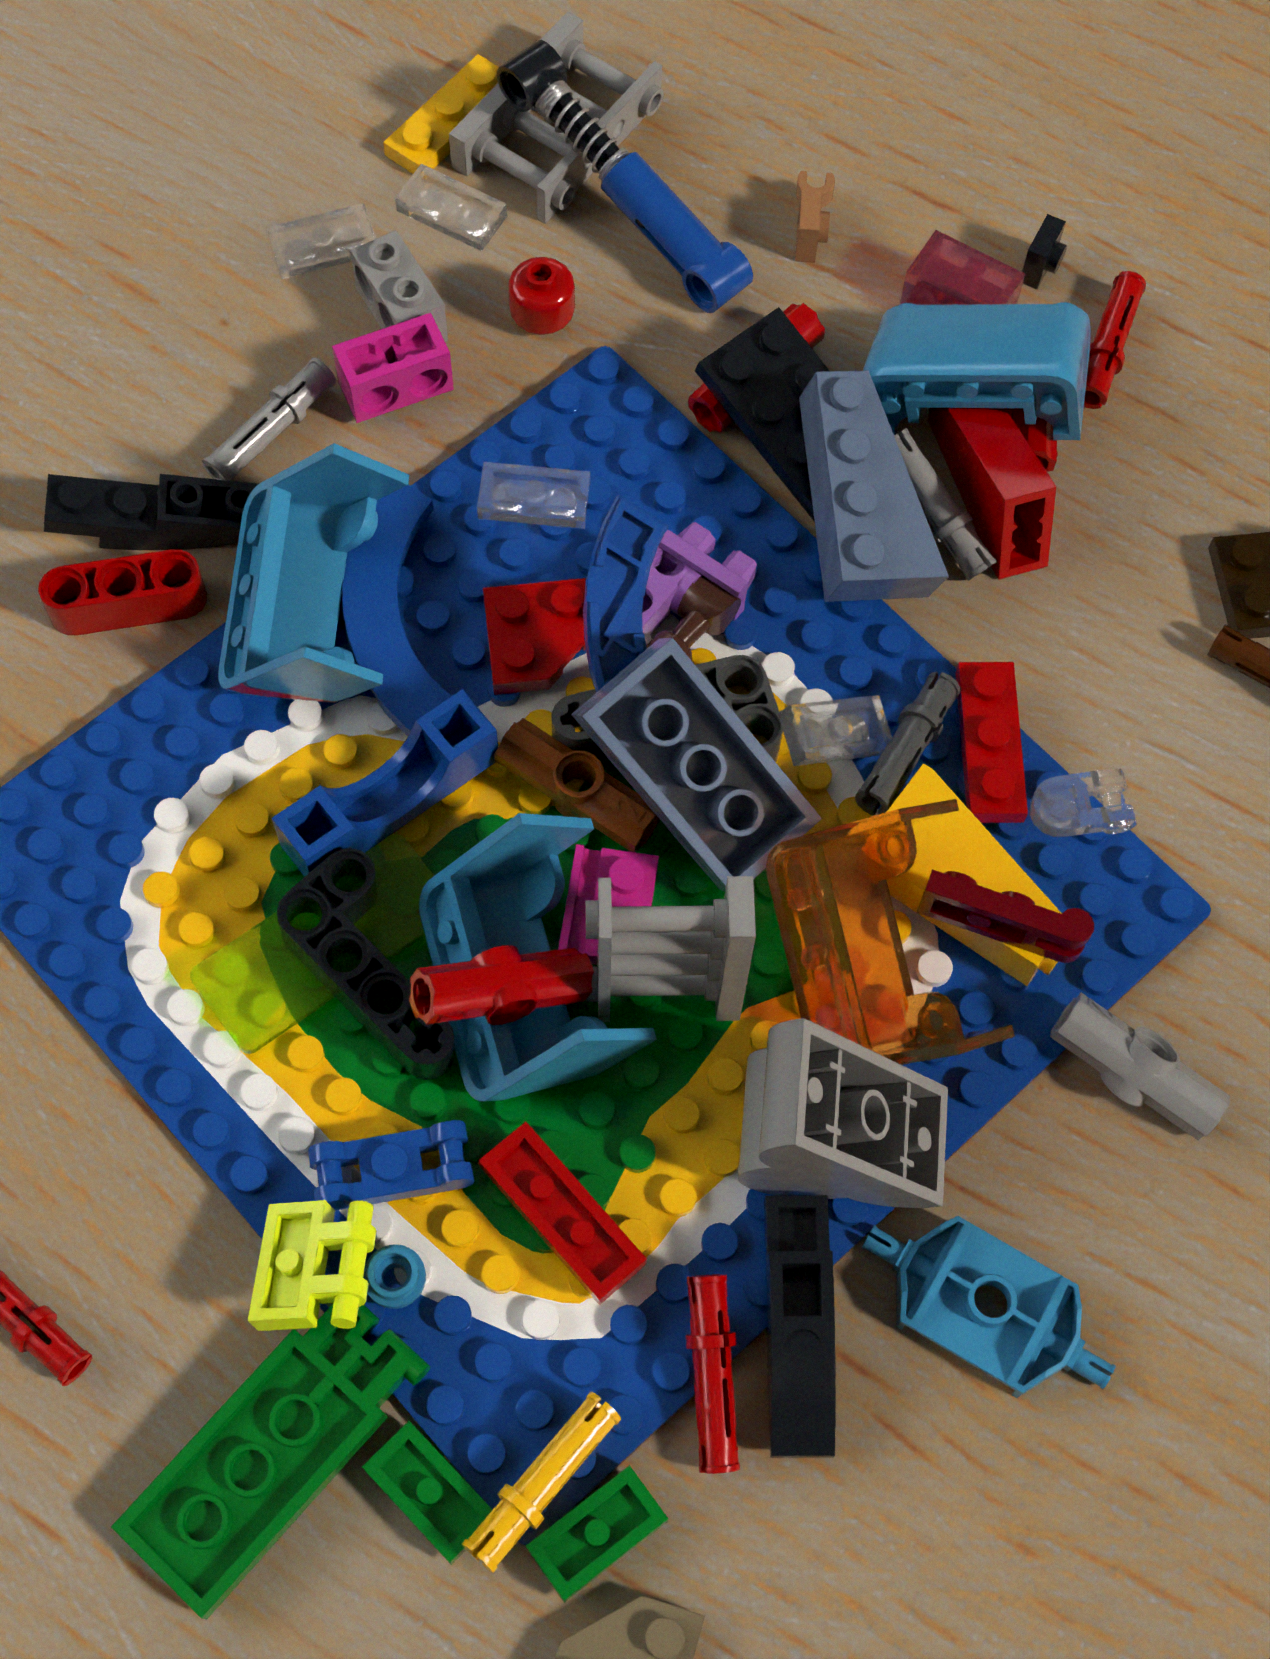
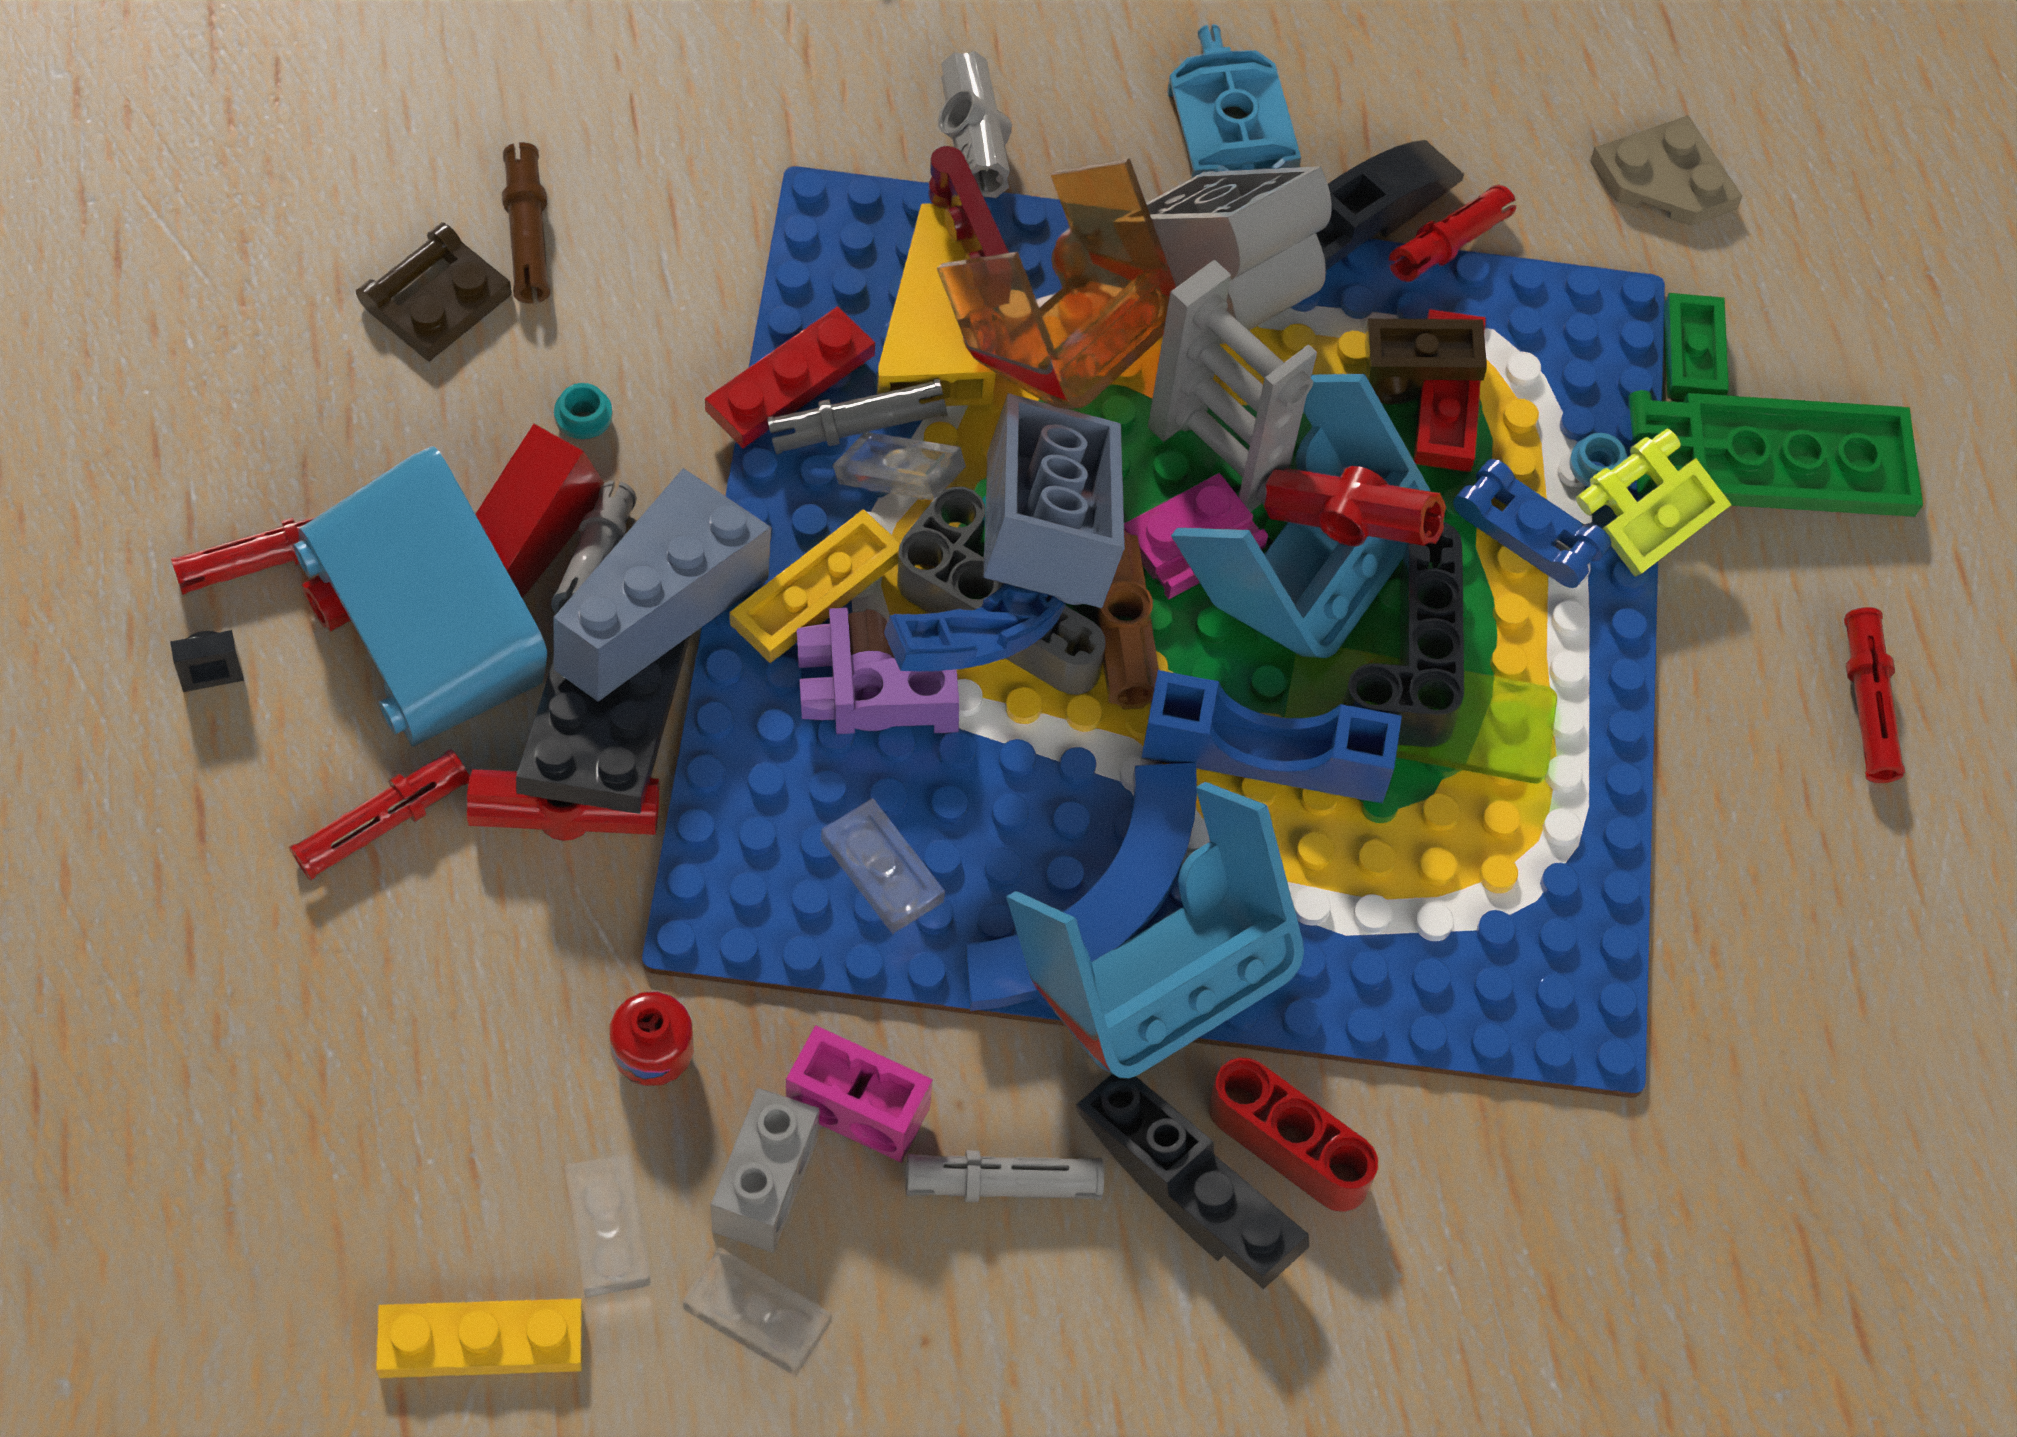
camera: 135 degrees left, 5 degrees down
(491, 120) = (437, 1267): light grey fence -> none
(533, 632) = (1007, 768): red plate -> none
(541, 1482) = (1643, 275): yellow pin -> none
(596, 1533) = (1614, 237): green plate -> none
(603, 1197) = (1416, 350): none -> dark brown plate
(709, 269) = (423, 1189): piece -> none
(787, 616) = (815, 583): none -> yellow plate
(812, 222) = (337, 884): medium nougat plate -> none
(841, 291) = (441, 774): none -> red pin
(959, 275) = (315, 699): clear pink brick -> none
(1064, 808) = (805, 289): clear plate -> none
(1079, 587) = (583, 398): none -> teal plate

